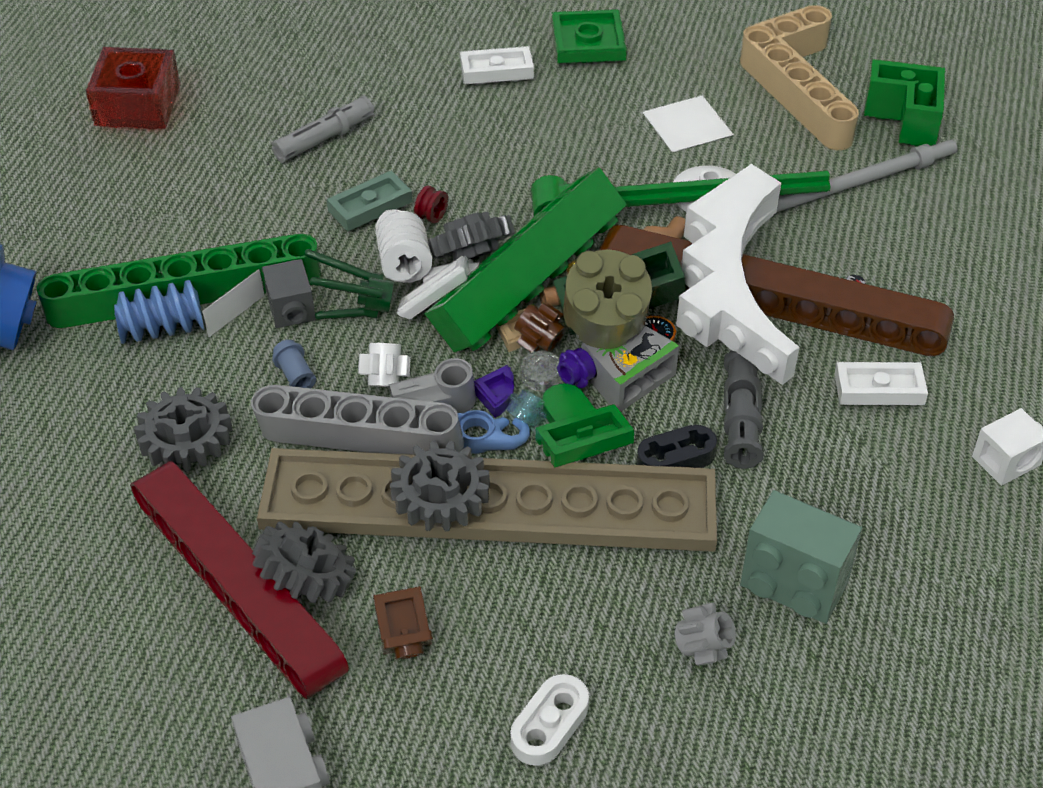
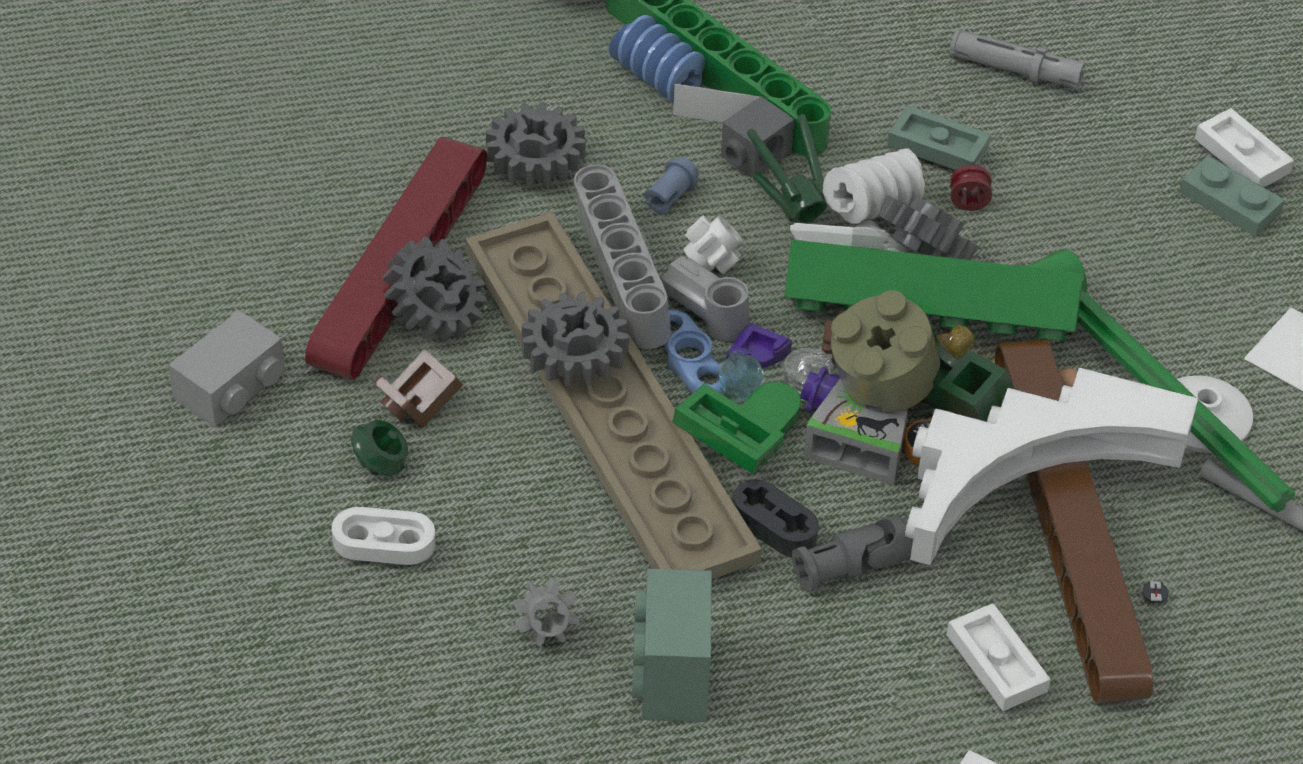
camera: 60 degrees right, 0 degrees up
(448, 681) = (379, 447): none -> dark green hat
(528, 91) = (1231, 196): none -> sand green plate

